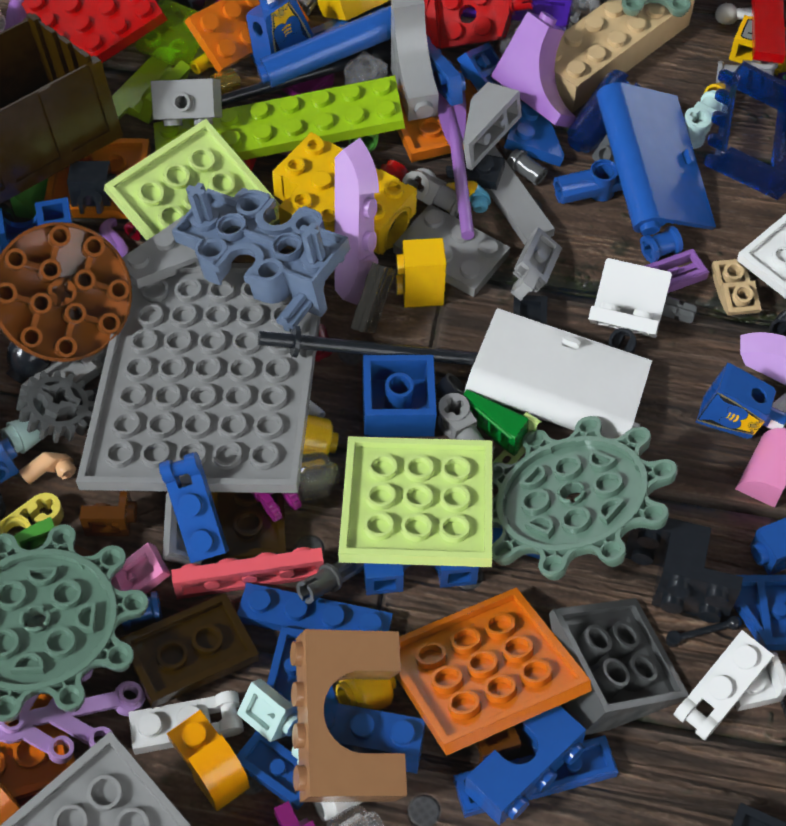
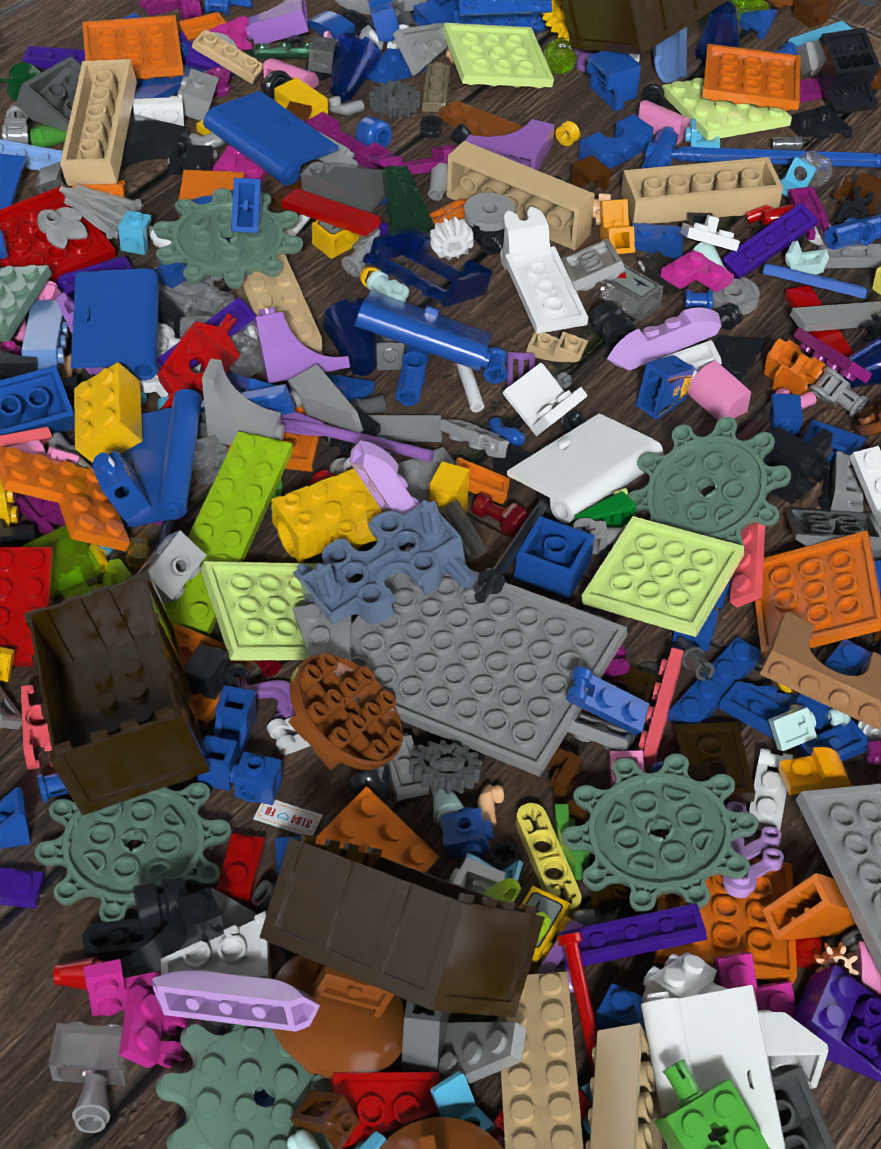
camera: 65 degrees left, 10 degrees down
(446, 312) = (509, 518): none -> dark red leg
(476, 293) = (485, 481): none -> orange tile
(510, 582) = (748, 576): none -> coral plate
(565, 292) = (512, 435): none -> blue arm
(612, 242) = (471, 388): none -> white piece
(699, 648) = (845, 486): none -> light grey hinge

